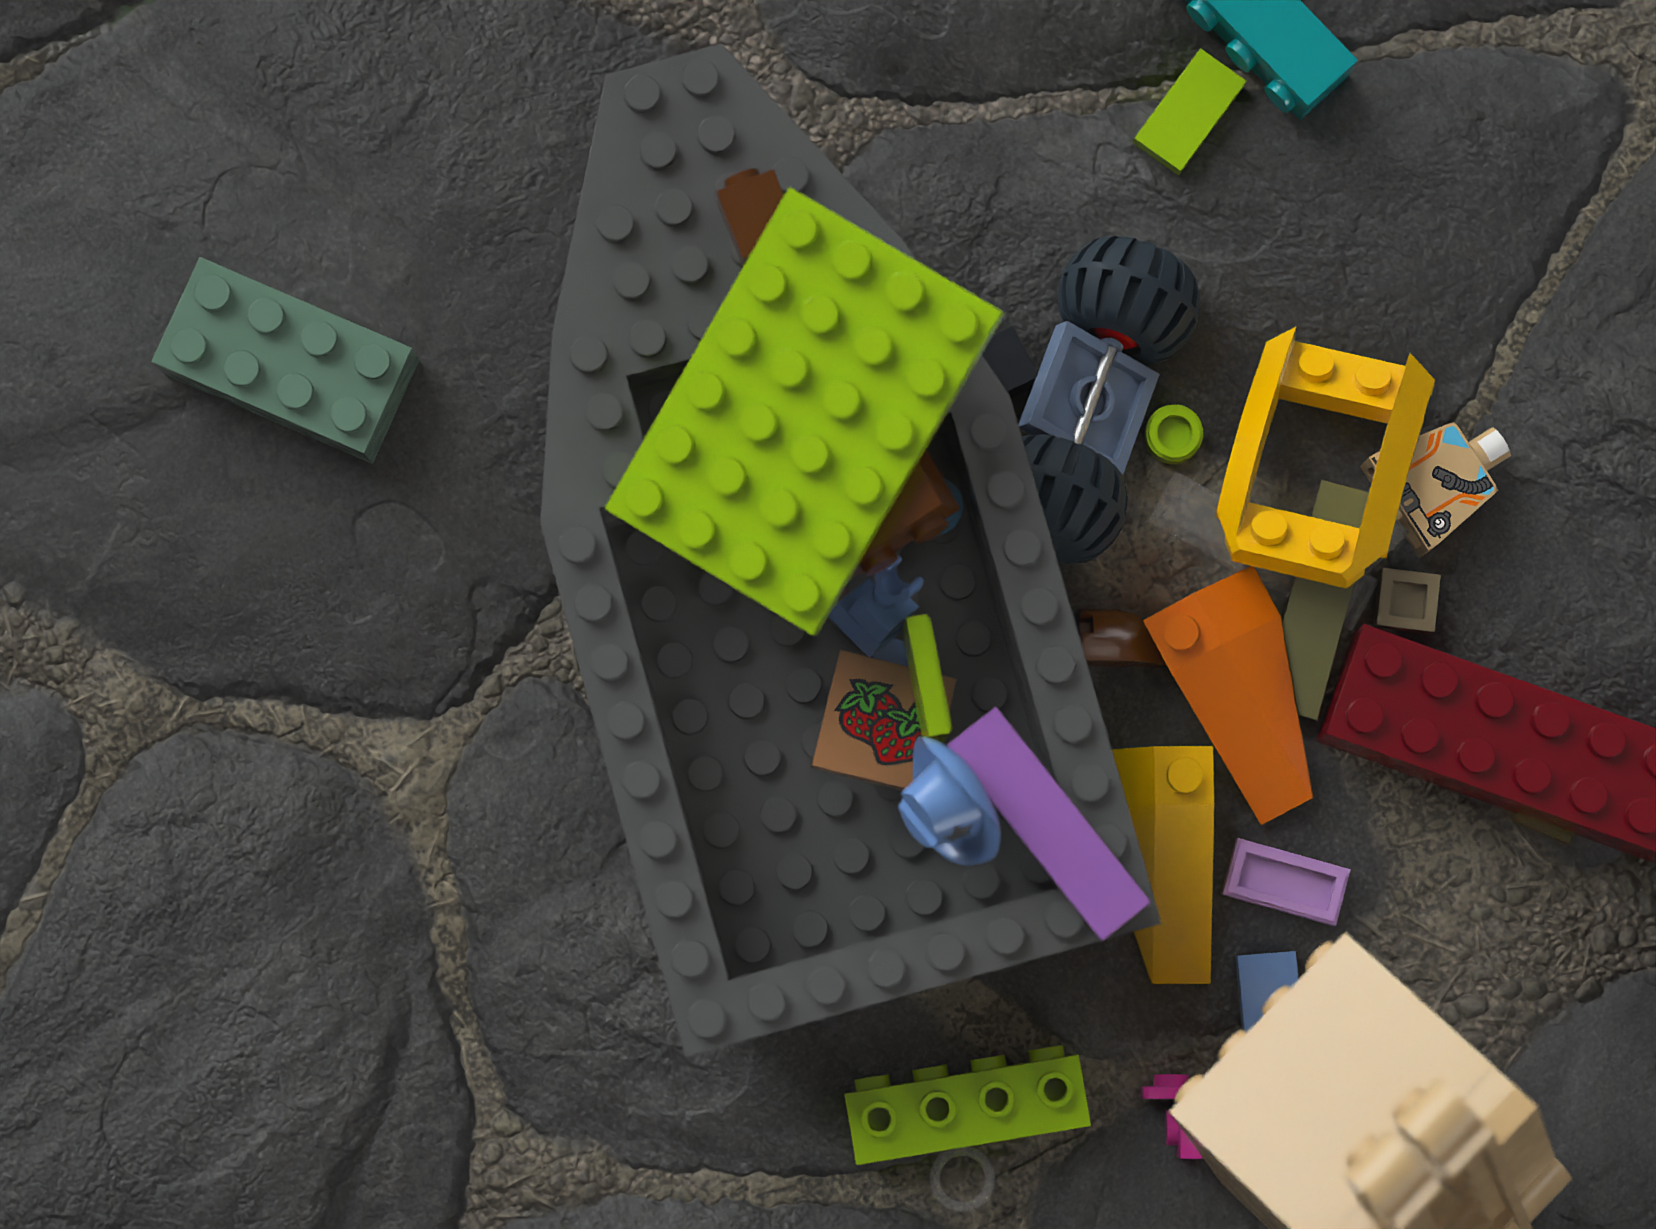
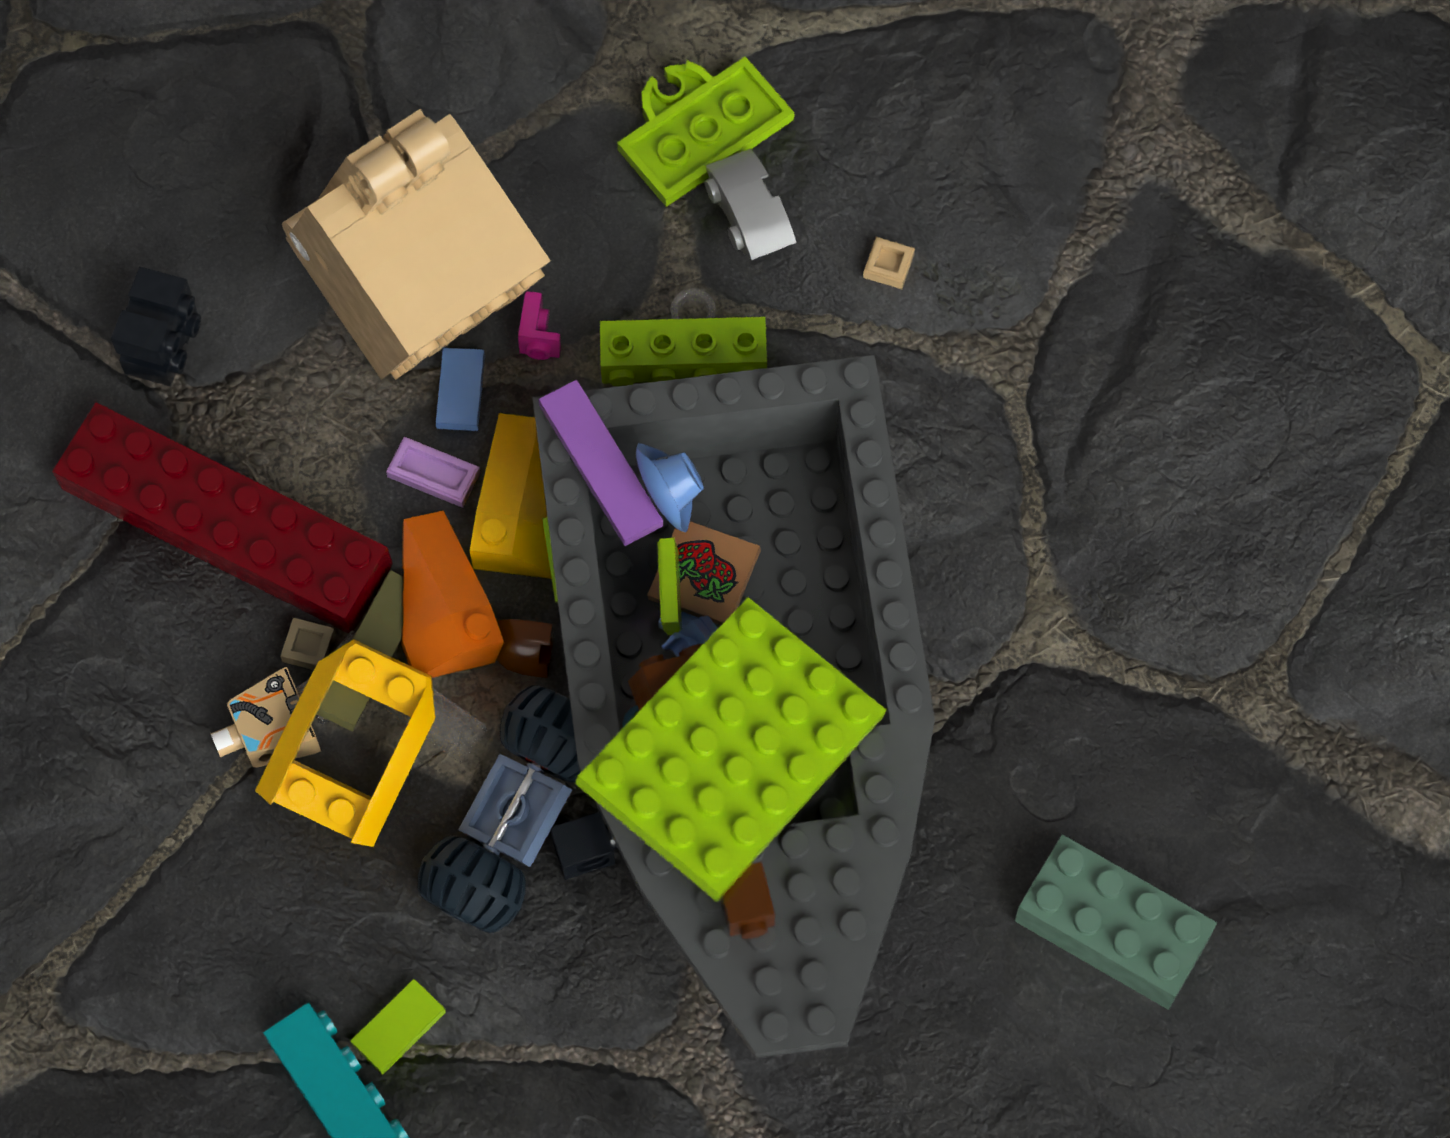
camera: 170 degrees left, 15 degrees down
(1173, 434) = (455, 788): lime tile -> none

